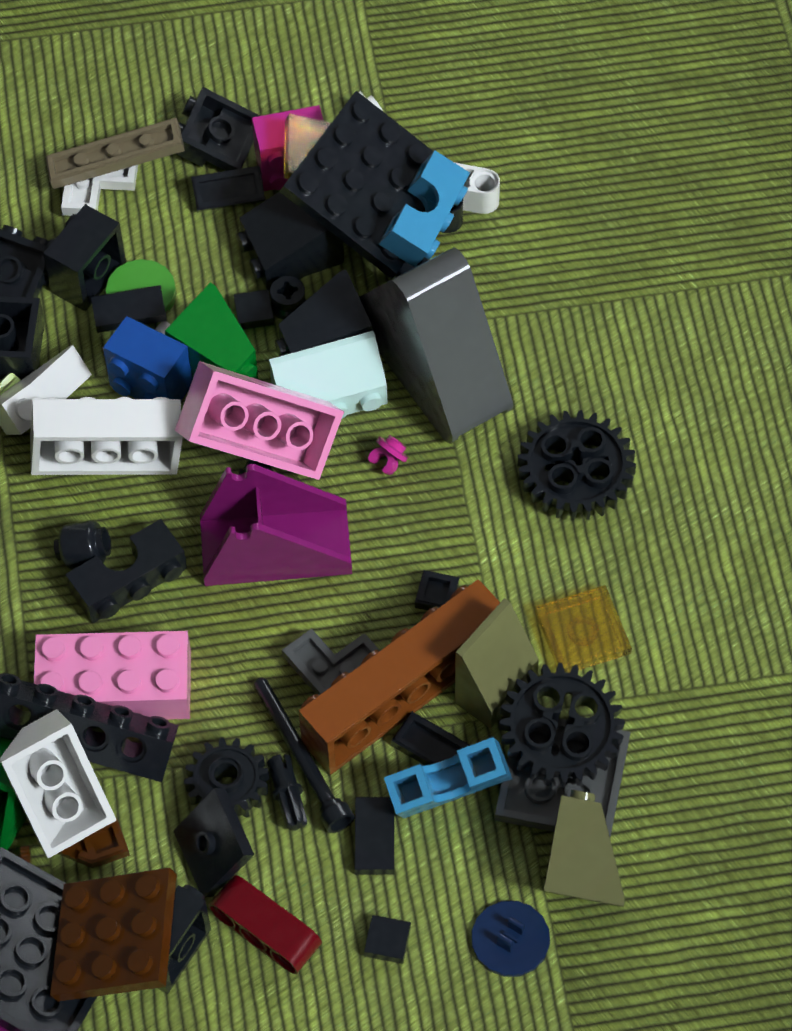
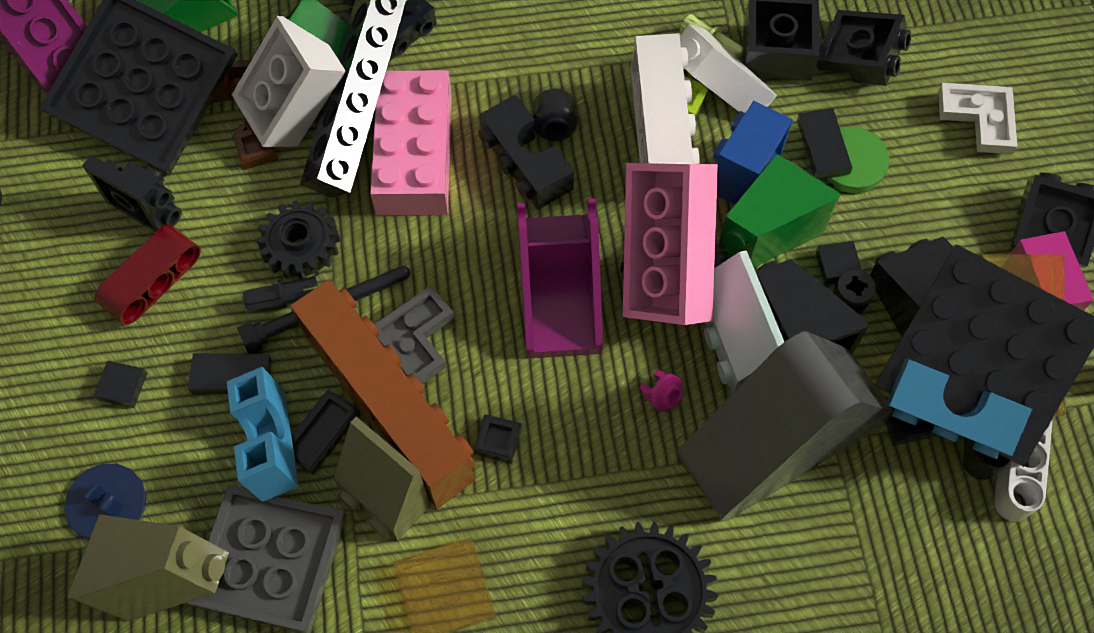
camera: 90 degrees right, 5 degrees up
(84, 256) = (878, 95): black brick -> none
(114, 153) = (1011, 121): dark tan tile -> none
(114, 935) = (124, 132): reddish brown plate -> none
(213, 842) = (225, 224): black plate -> none
(228, 188) = (986, 226): black tile -> none
(594, 733) = (296, 587): black gear -> none

